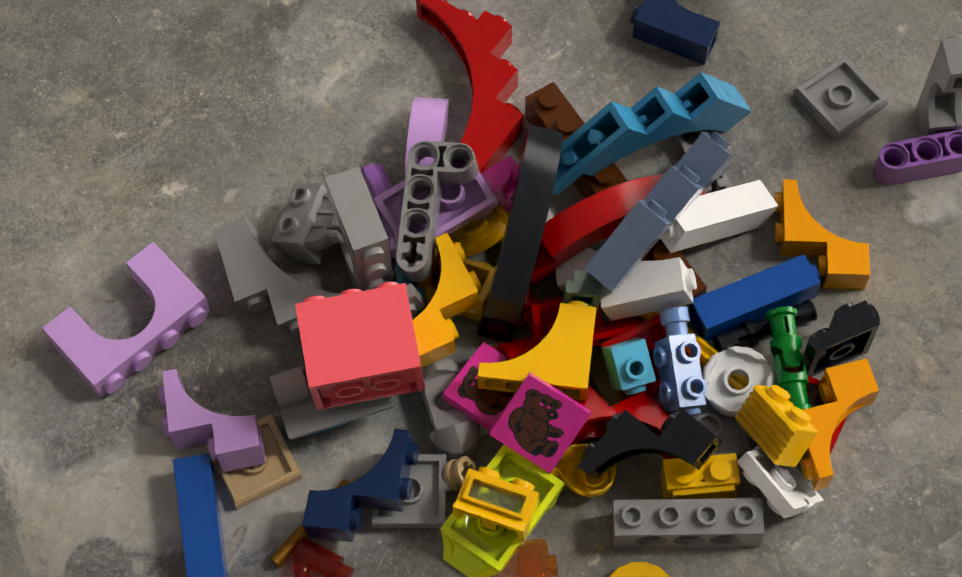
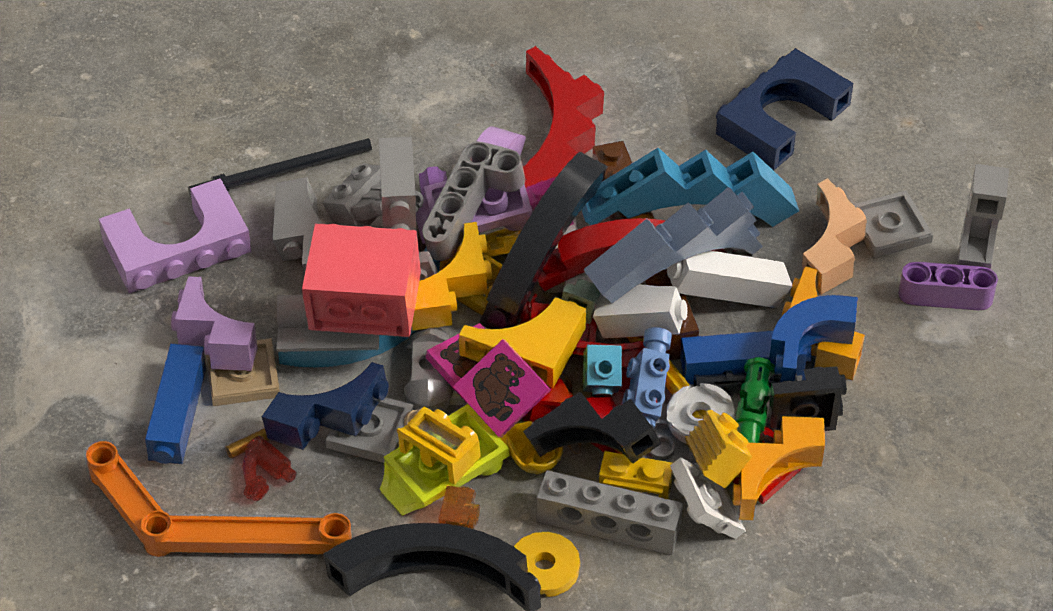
camera: 15 degrees right, 15 degrees down
(207, 202) = (291, 164): none -> black bar
(801, 117) = (845, 228): none -> light nougat arch
(825, 243) = (810, 322): none -> blue arch

